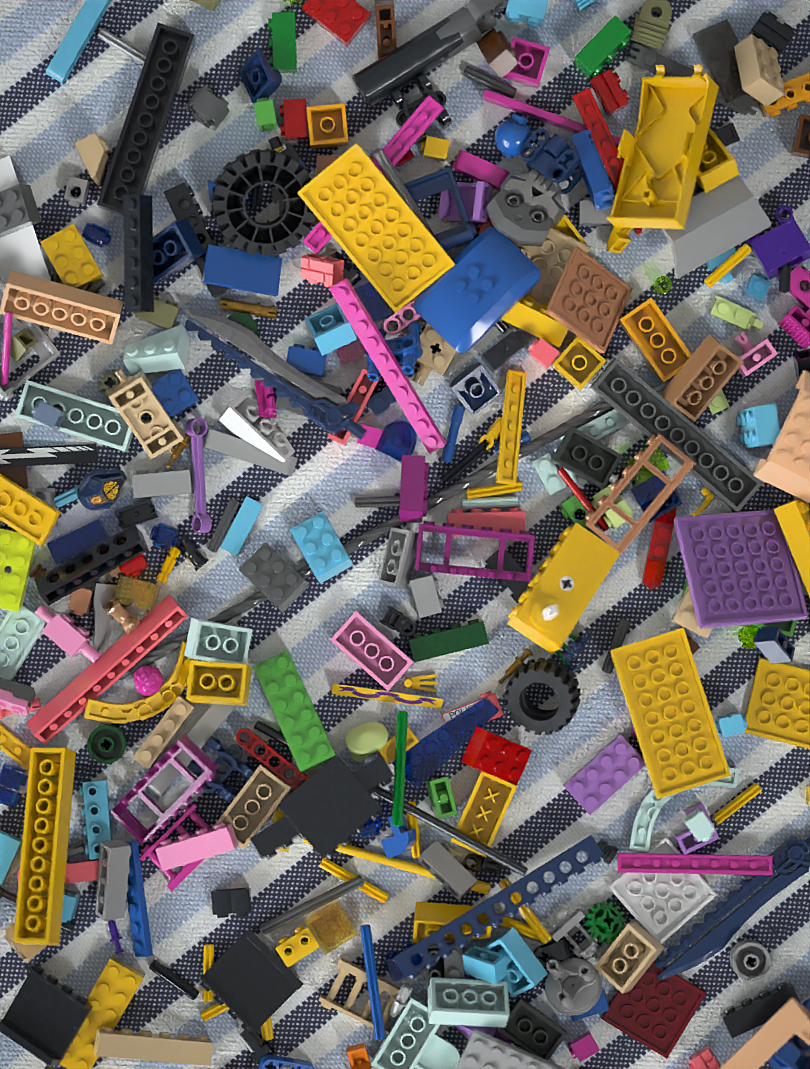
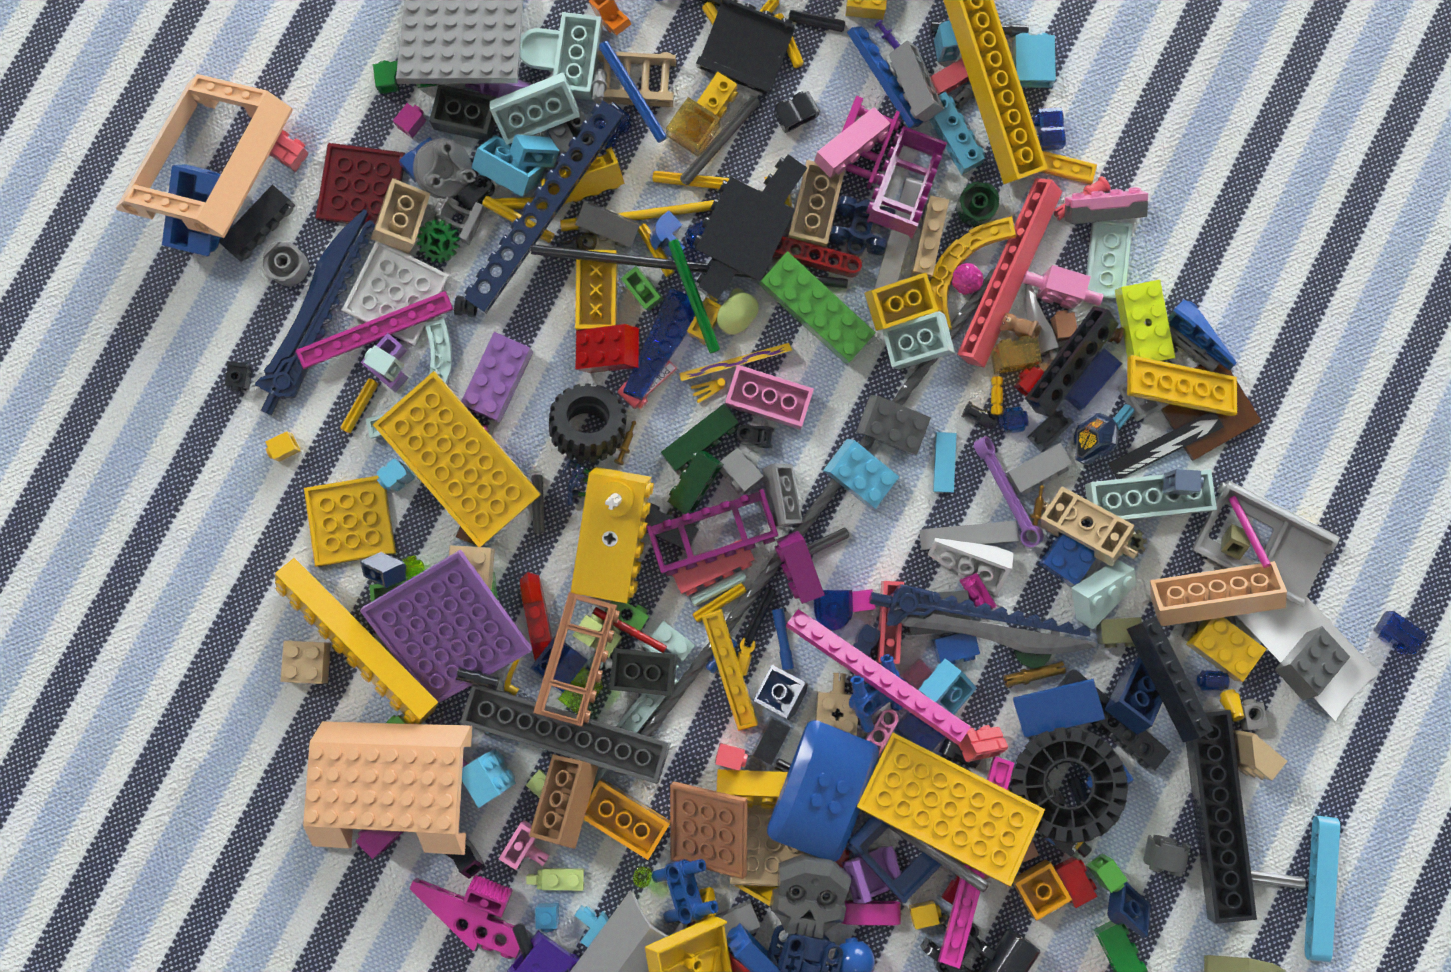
camera: 155 degrees right, 5 degrees down
(90, 209) = (1231, 701): none -> yellow cone
(223, 525) = (962, 455): dark grey axle -> none
(470, 603) = (695, 482): none -> dark green brick
(578, 363) = (691, 762): yellow brick -> none
(631, 257) = (684, 891): none -> blue piece
(725, 267) = (585, 926): yellow axle -> none
(731, 514) = (477, 678): none -> black pin

